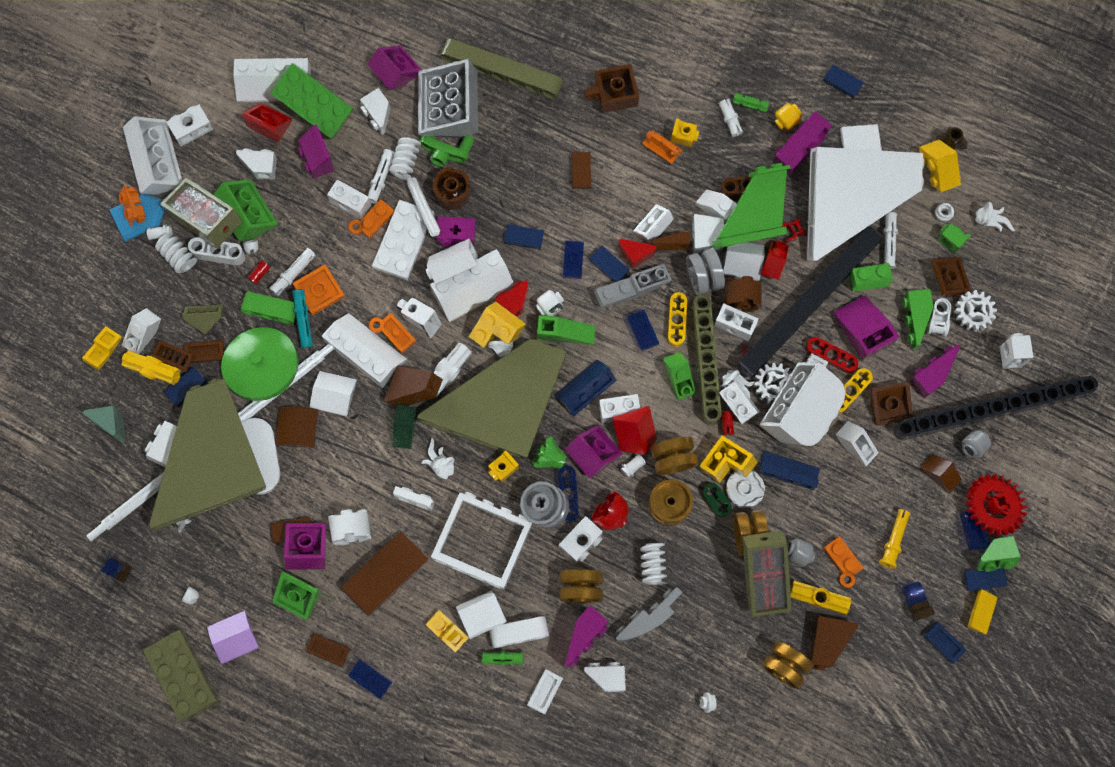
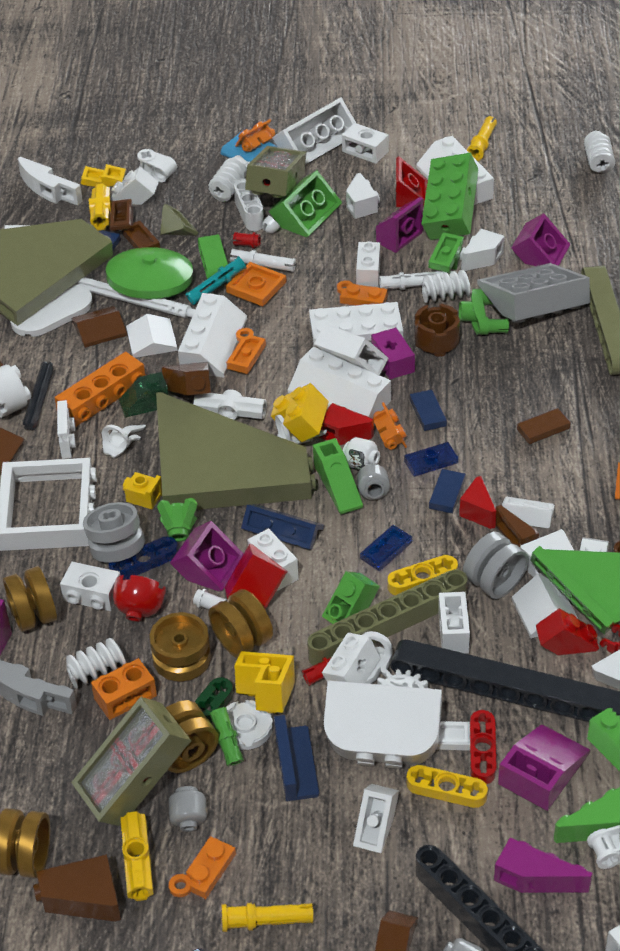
camera: 70 degrees right, 30 degrees down
(78, 401) = (45, 184): none -> white slope
(109, 420) = (27, 198): sand green slope -> none
(120, 300) = (156, 164): none -> white piece
(241, 40) = (480, 142): none -> yellow pin
(355, 503) = (38, 396): none -> black axle
(366, 427) = (101, 387): none -> orange brick
(372, 138) = (446, 253): none -> bright green slope
(419, 316) = (273, 352): white torso -> none
(423, 207) = (397, 316): white axle -> none
(522, 270) = (393, 433): none -> orange hinge
(580, 309) = (373, 482): none -> light grey head
(633, 287) = (434, 519): light grey slope -> none
(688, 553) = (122, 688): none -> orange brick
(743, 294) = (493, 613): reddish brown brick -> none
(757, 504) = (227, 736): none -> bright green pin
(891, 403) = (459, 833): reddish brown slope -> none

